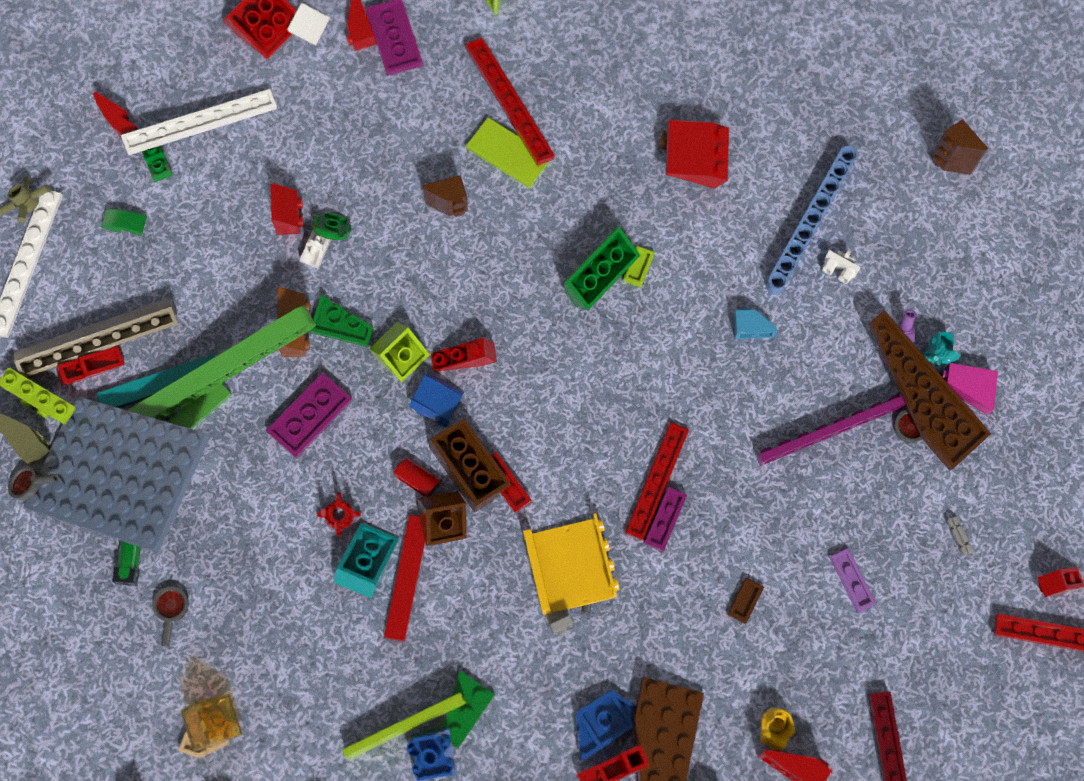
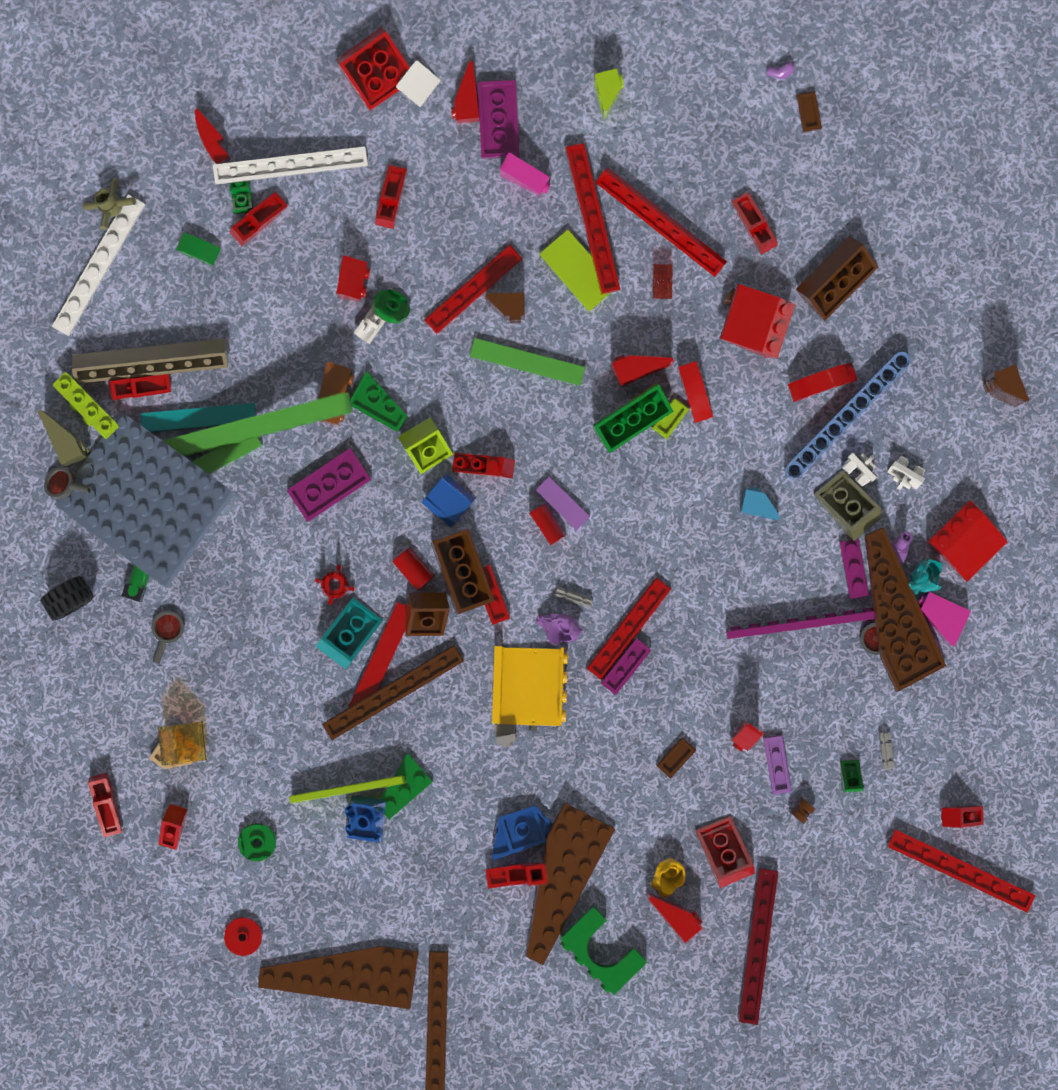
camera: 20 degrees right, 15 degrees up
(53, 597) = (67, 598): none -> black tyre
(178, 180) = (258, 219): none -> red slope
(306, 129) = (391, 196): none -> red slope
(409, 195) = (473, 289): none -> red tile
(427, 610) = (392, 692): none -> reddish brown tile
(431, 76) = (524, 175): none -> dark pink slope
(481, 248) = (527, 361): none -> bright green tile
(544, 398) = (547, 524): none -> red brick
(554, 374) = (562, 503): none -> medium lavender tile
(577, 89) = (661, 222): none -> red plate
(586, 496) = (559, 627): none -> medium lavender hair
(591, 463) = (573, 597): none -> light grey axle
(593, 221) = (633, 368): none -> red slope
(594, 140) = (662, 281): none -> clear red hips
(655, 233) = (695, 391): none -> red slope
(667, 69) = (754, 223): none -> red slope
(761, 98) = (837, 277): none -> reddish brown slope
(776, 192) = (822, 381): none -> red arch
(813, 553) = (745, 736): none -> red slope
(829, 686) = (725, 852): none -> red slope
(842, 303) = (849, 505): none -> olive slope
(866, 363) = (854, 568): none -> magenta plate
(887, 260) = (905, 476): none -> white hips
(894, 620) = (802, 810): none -> reddish brown wheel
(933, 571) = (851, 776): none -> green slope
(969, 307) = (967, 540): none -> red slope

